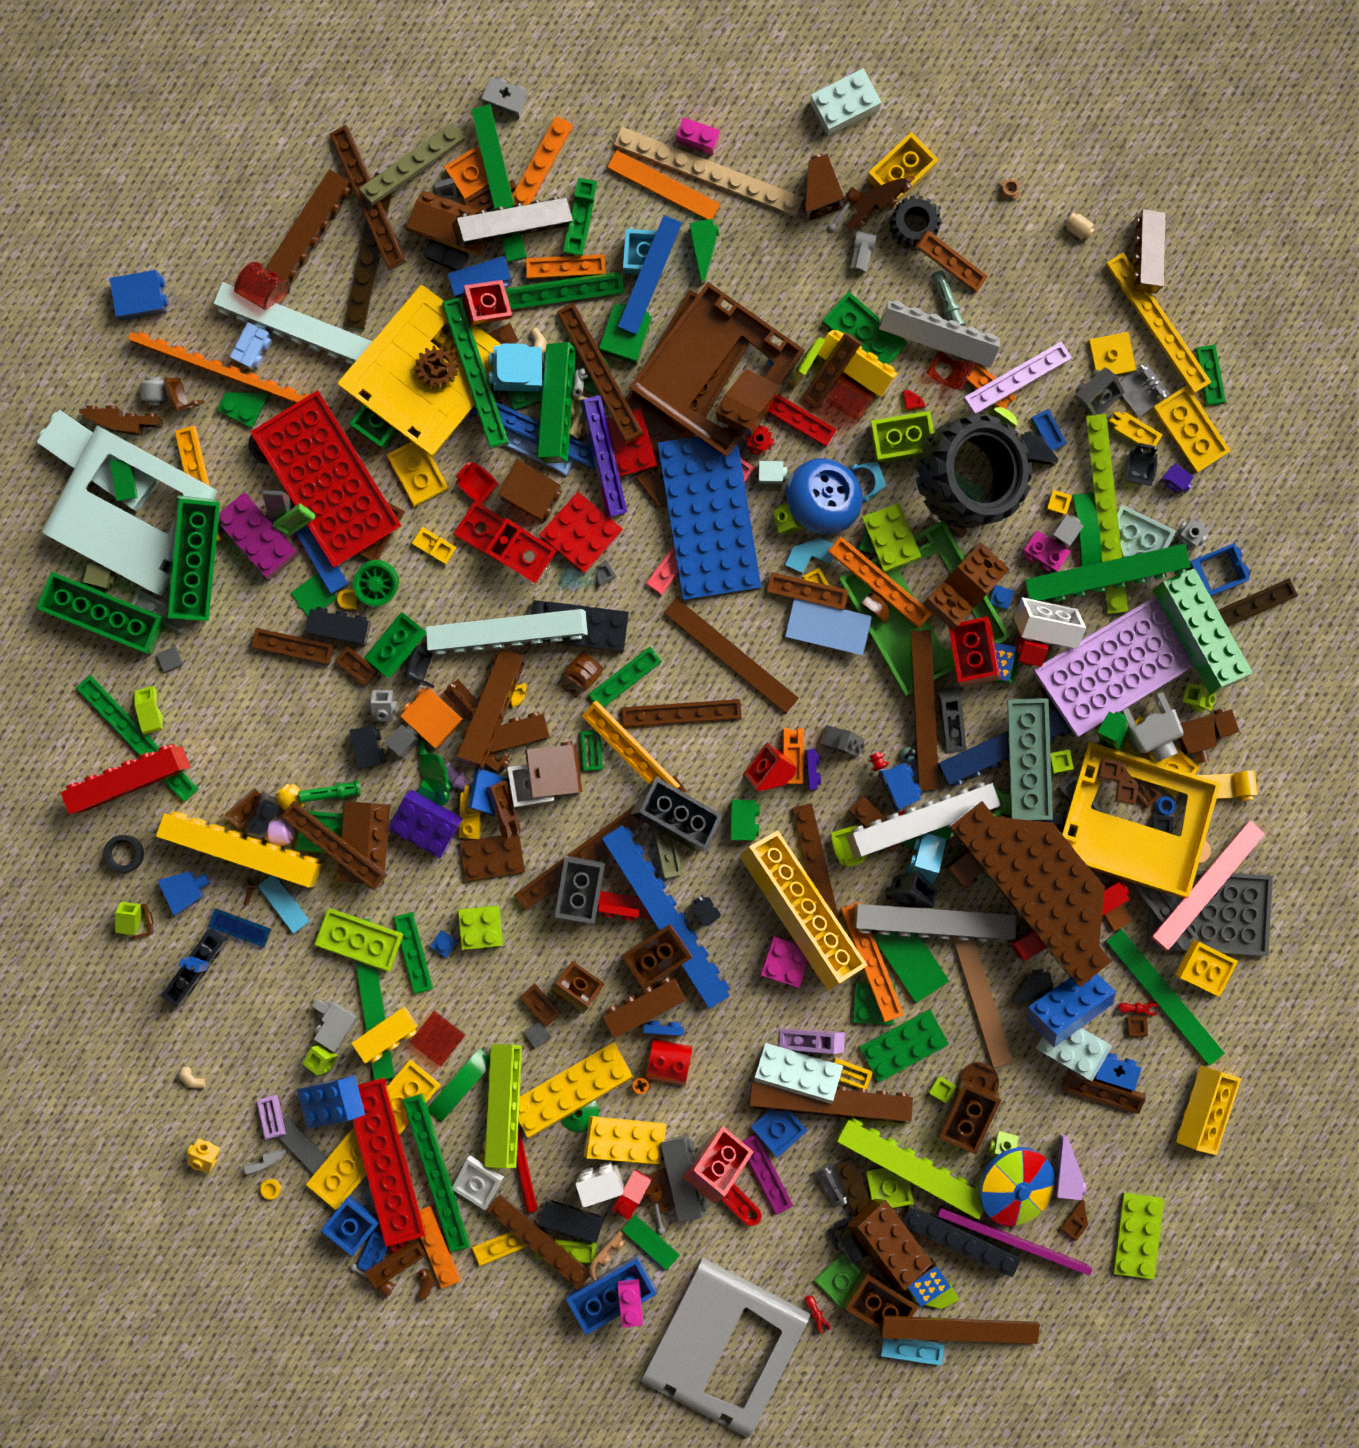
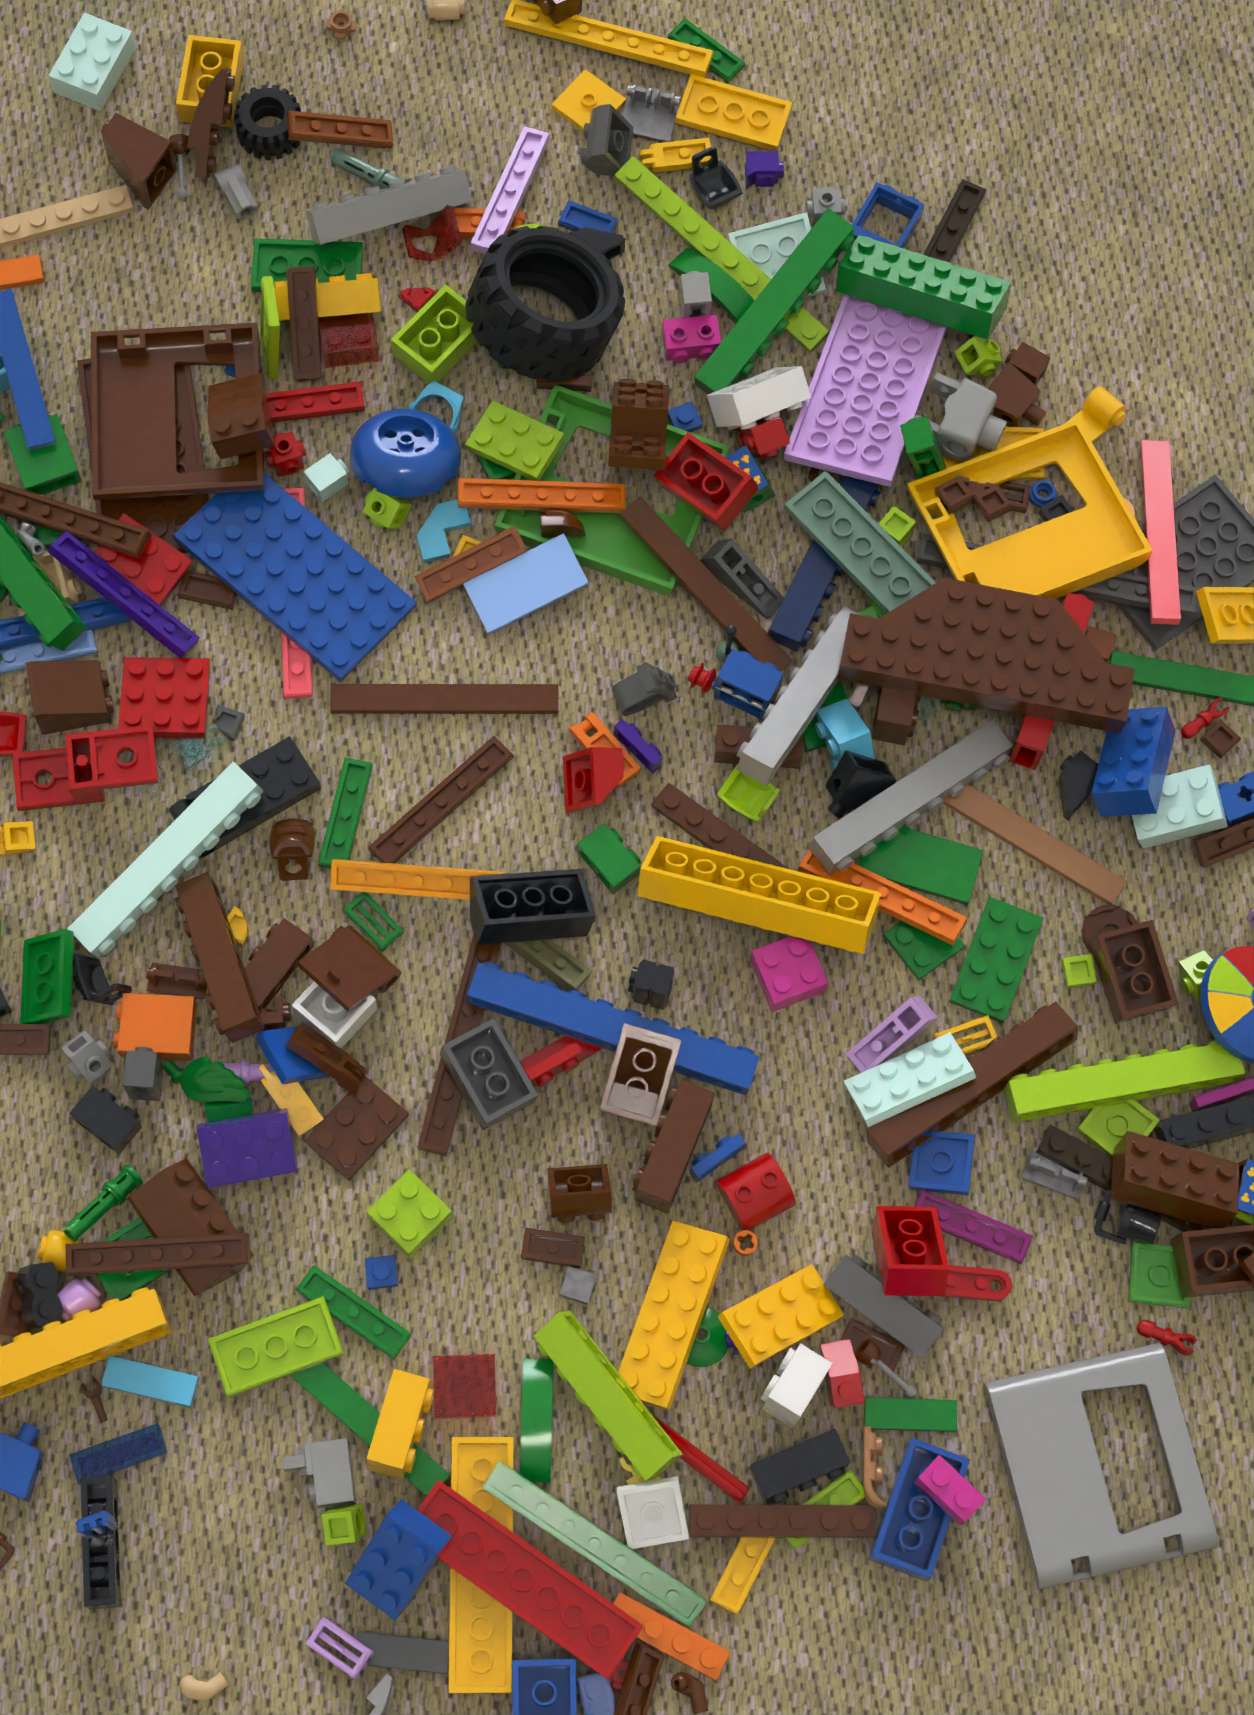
camera: 50 degrees left, 15 degrees down
(704, 240) = (50, 301): green slope -> none
(1059, 502) = (661, 281): yellow plate -> none

